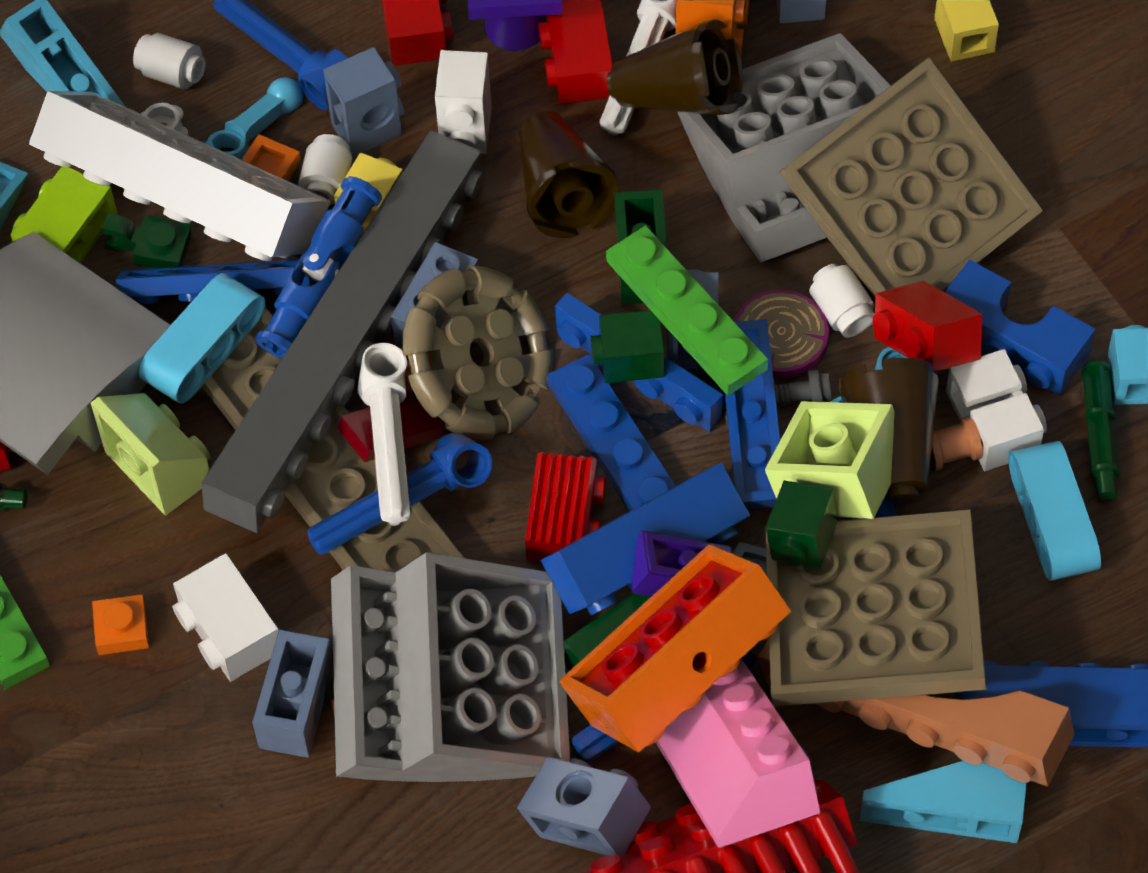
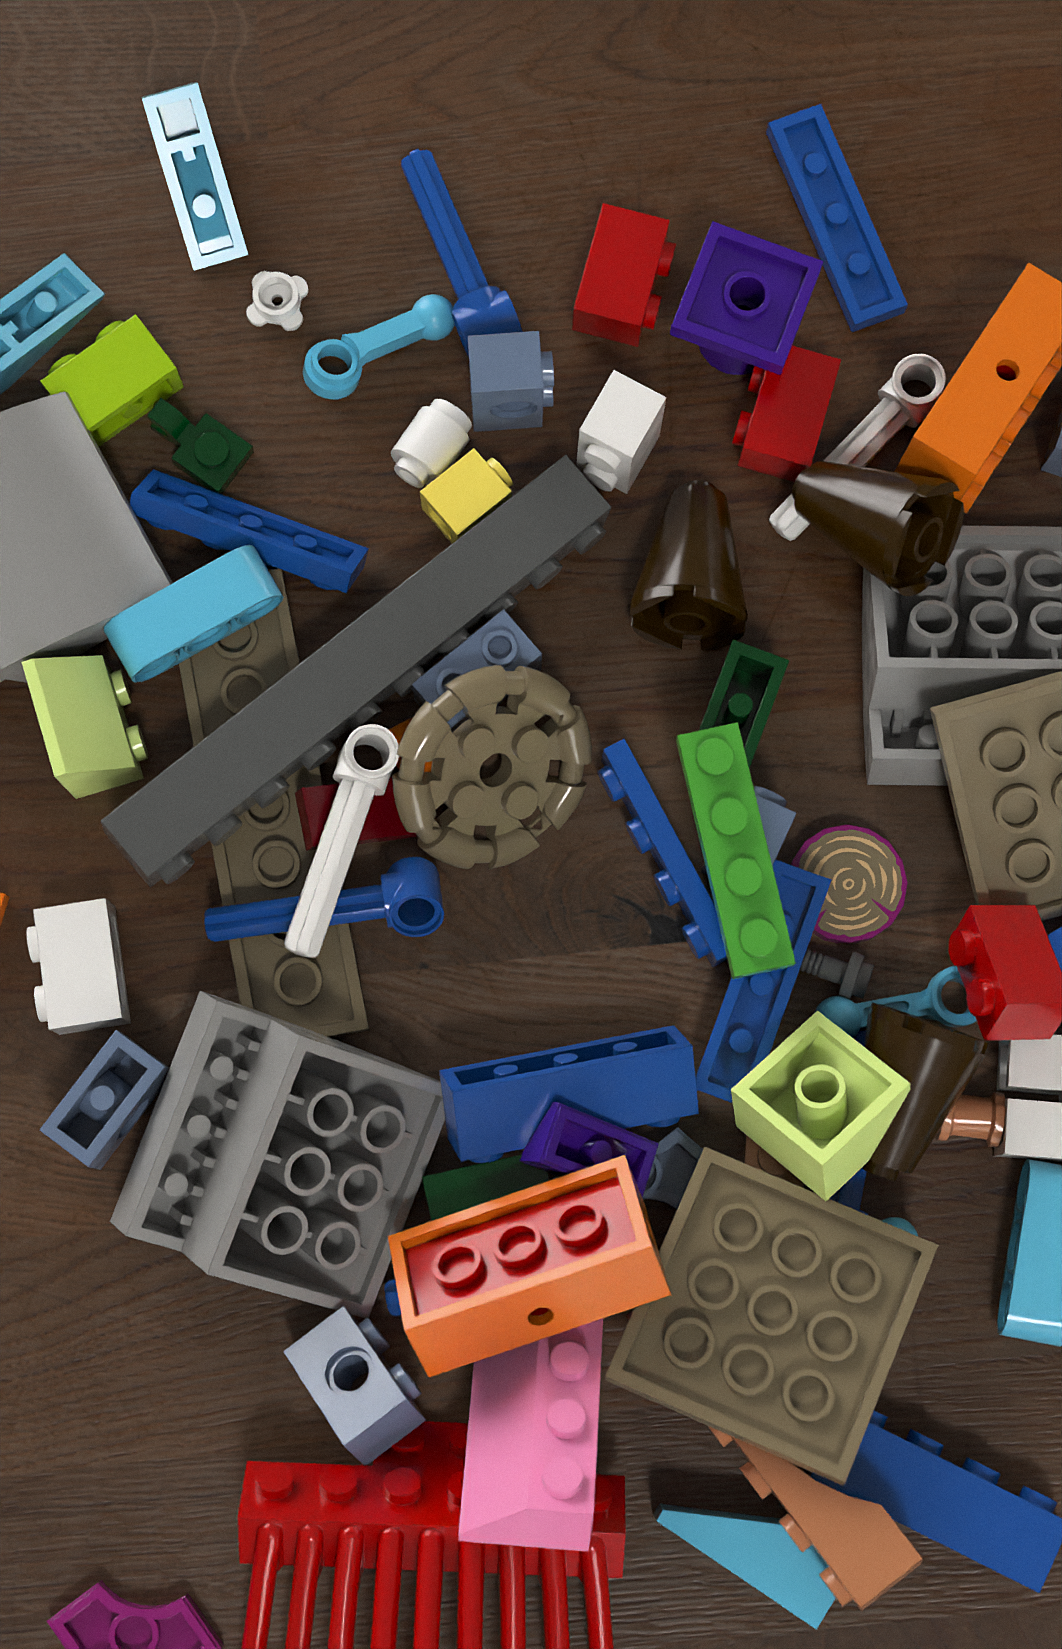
camera: 20 degrees right, 20 degrees up
(169, 60) = (319, 217): white brick -> none
(177, 173) = (256, 386): white brick -> none
(273, 157) = (371, 407): orange plate -> none
(329, 249) = (380, 567): blue piece -> none
(562, 503) = (502, 999): red brick -> none
(609, 432) = (599, 927): blue plate -> none
(629, 347) = (655, 852): dark green brick -> none
(802, 524) = (738, 1180): dark green brick -> none
(842, 299) = (936, 876): white brick -> none

